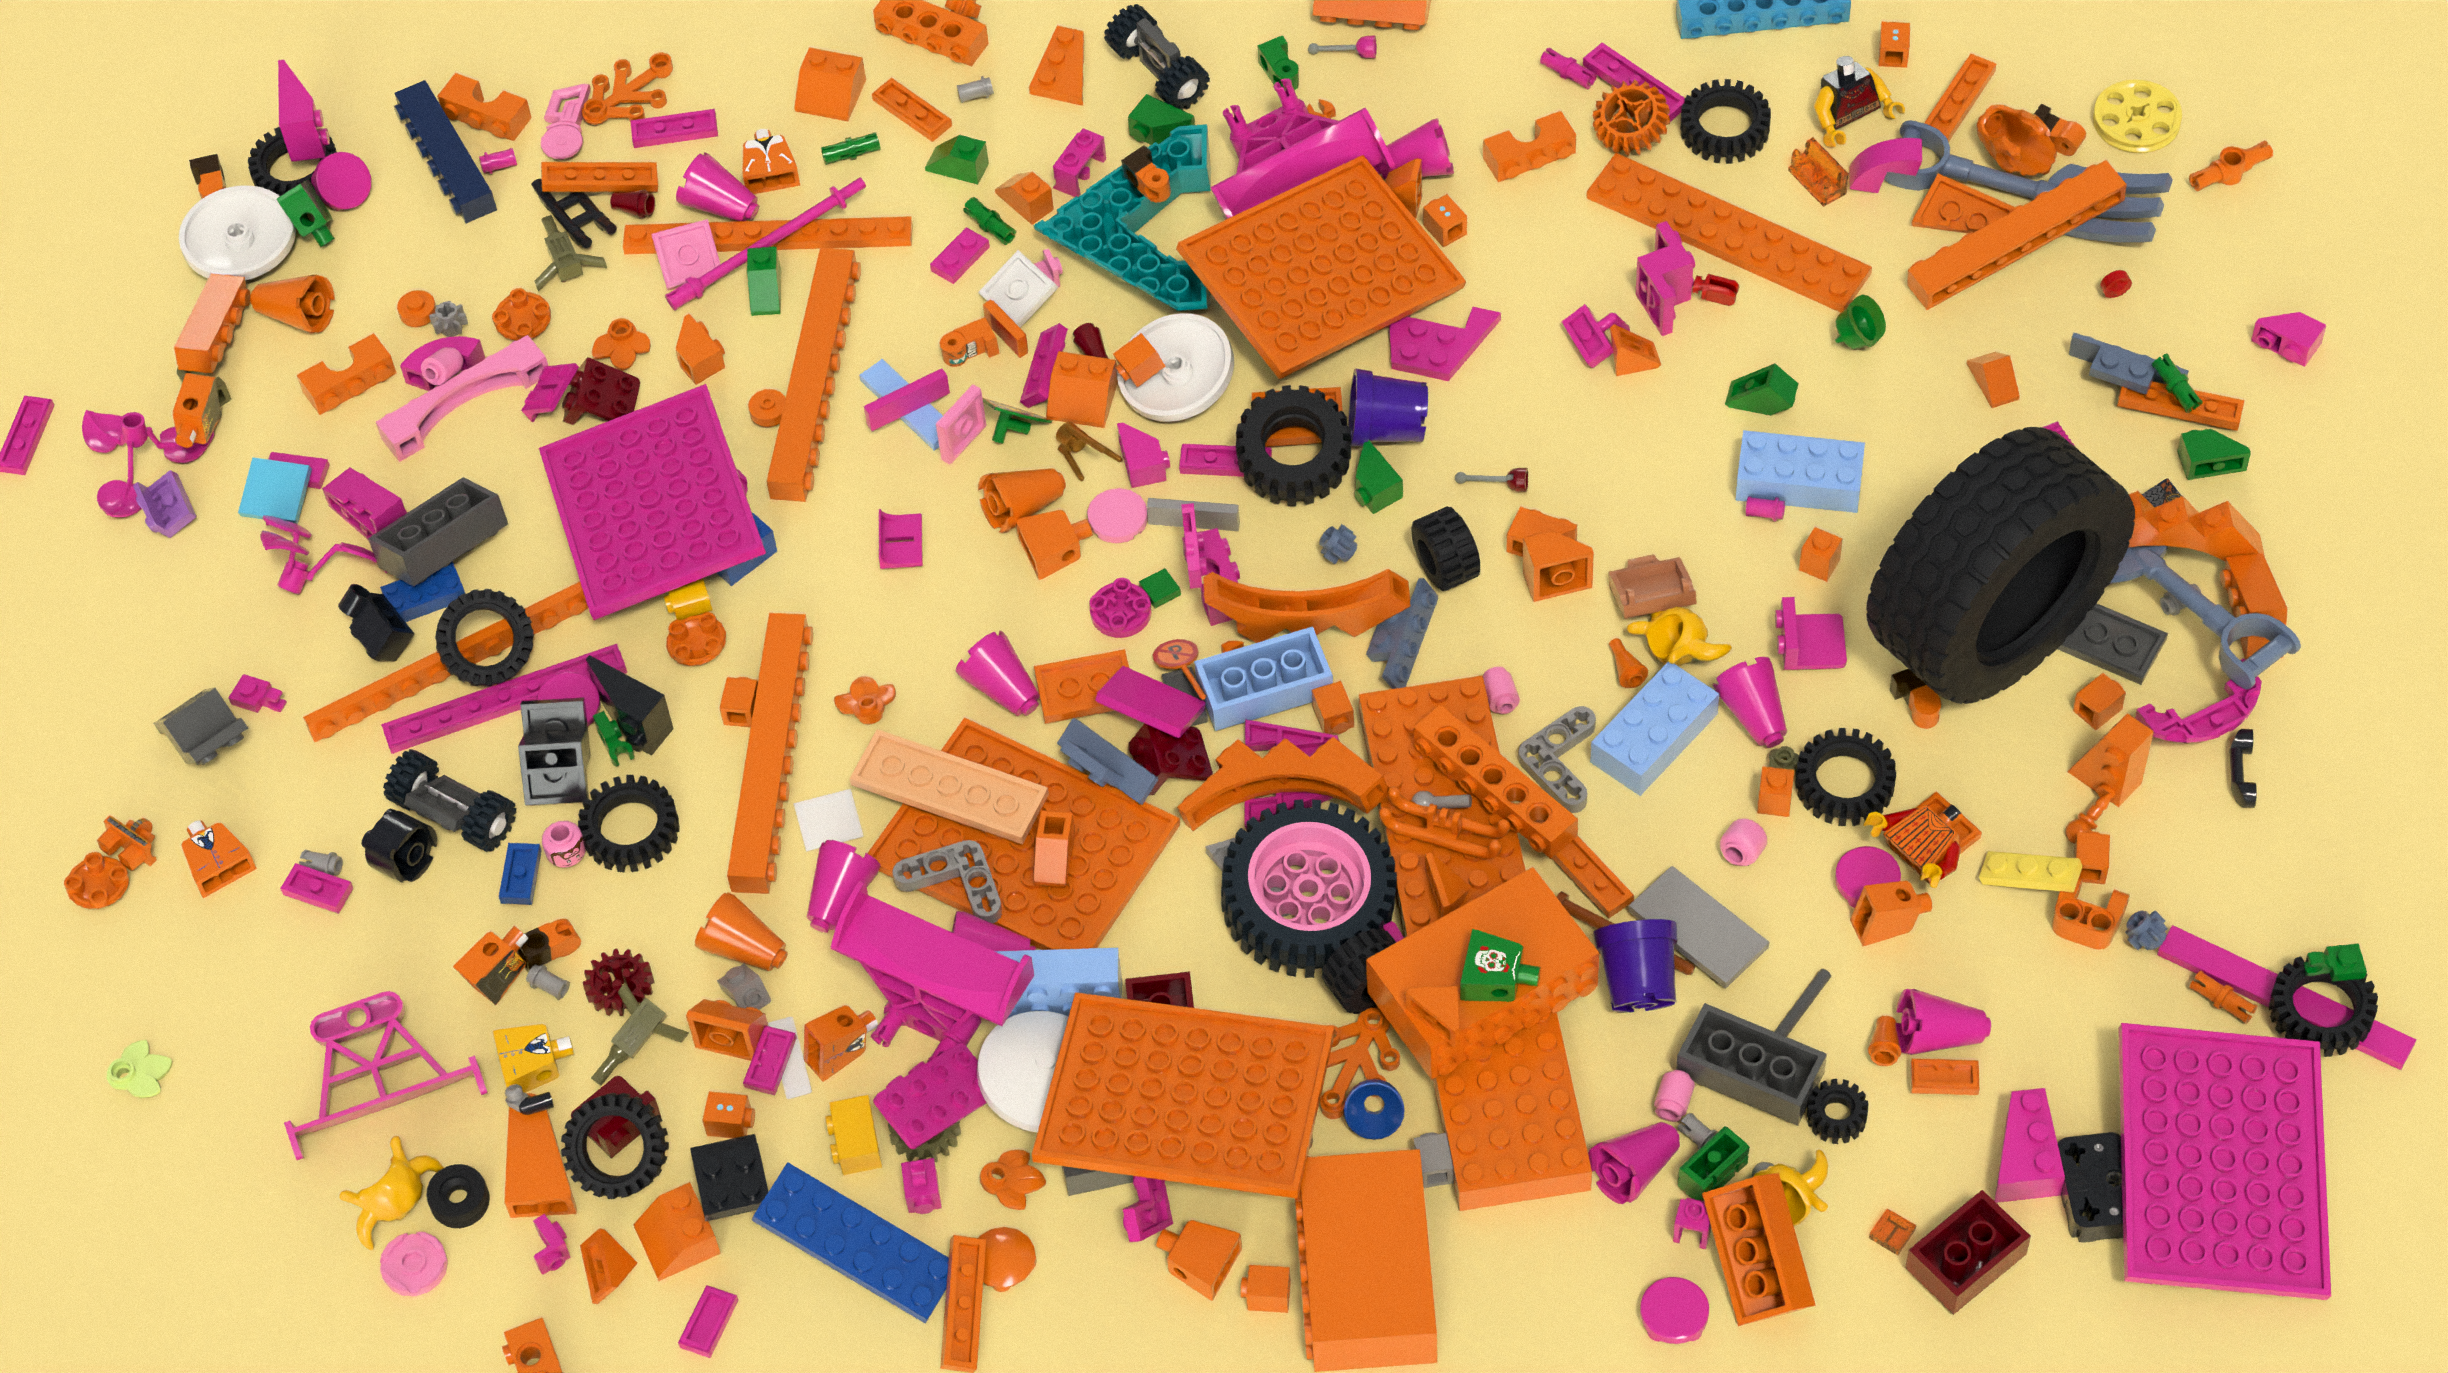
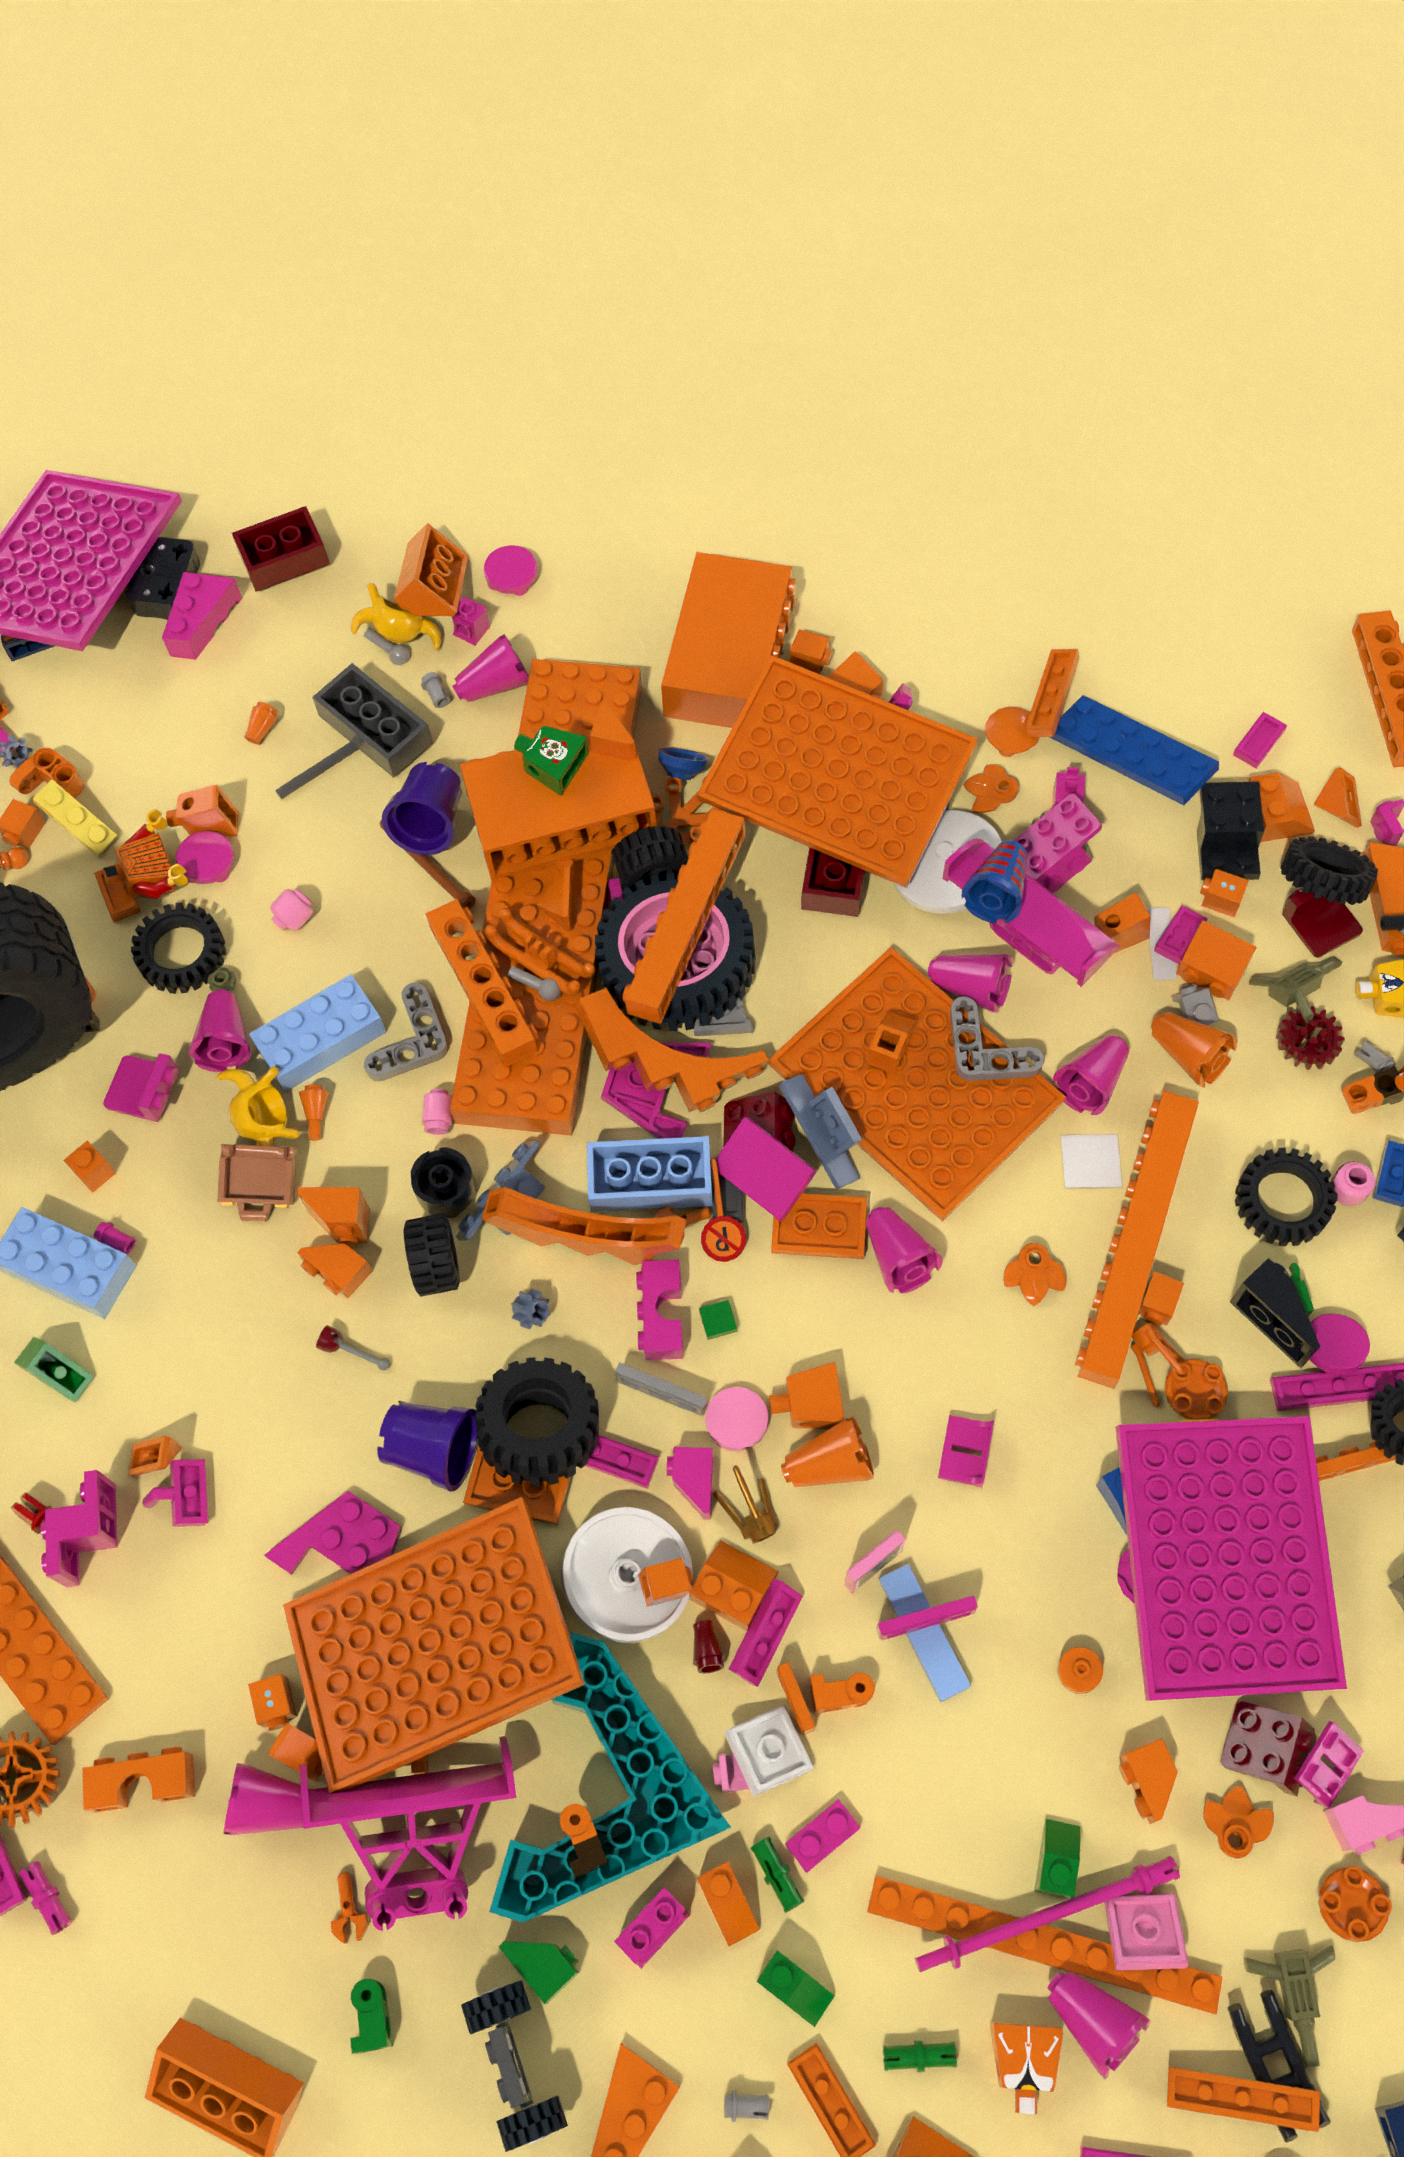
camera: 165 degrees left, 10 degrees up
(554, 751) = (1355, 1284): bracket -> none
(636, 203) = (1201, 2048): dark red cone -> none
(743, 663) = (1151, 1341): none -> orange plant
(813, 375) = (1020, 1708): orange brick -> none
(854, 1134) = (1117, 850): yellow brick -> none
(949, 786) = (975, 1137): light nougat plate -> none
(968, 949) = (998, 884): none -> blue cone
(1006, 422) = (814, 1571): green shield -> none
(1064, 972) = (916, 921): light blue brick -> none
(1120, 609) = (762, 1307): dark pink tile -> none
(1193, 543) = (674, 1322): dark pink wing -> none
(1300, 891) = (684, 916): none -> orange brick
(1333, 708) = (593, 1127): orange brick -> none
(1365, 47) = (260, 2015): hinge -> none
(1376, 480) = (468, 1373): green slope -> none
(1435, 1159) = (648, 716): light grey brick -> none
(1464, 622) = (457, 1181): none -> black brick
(1593, 877) = (423, 899): orange plate -> none
(1674, 1095) = (443, 718): bright pink brick -> none
(1705, 928) = (362, 850): light grey tile -> none
(1713, 1164) = (437, 651): green brick -> none
(1775, 791) = (243, 945): orange brick -> none
(1837, 1094) = (317, 668): black tyre -> none
(1892, 1231) = (326, 591): clear orange tile -> none
(1938, 1023) = (215, 715): dark pink cone -> none
(1945, 1076) = (229, 685): orange plate -> none

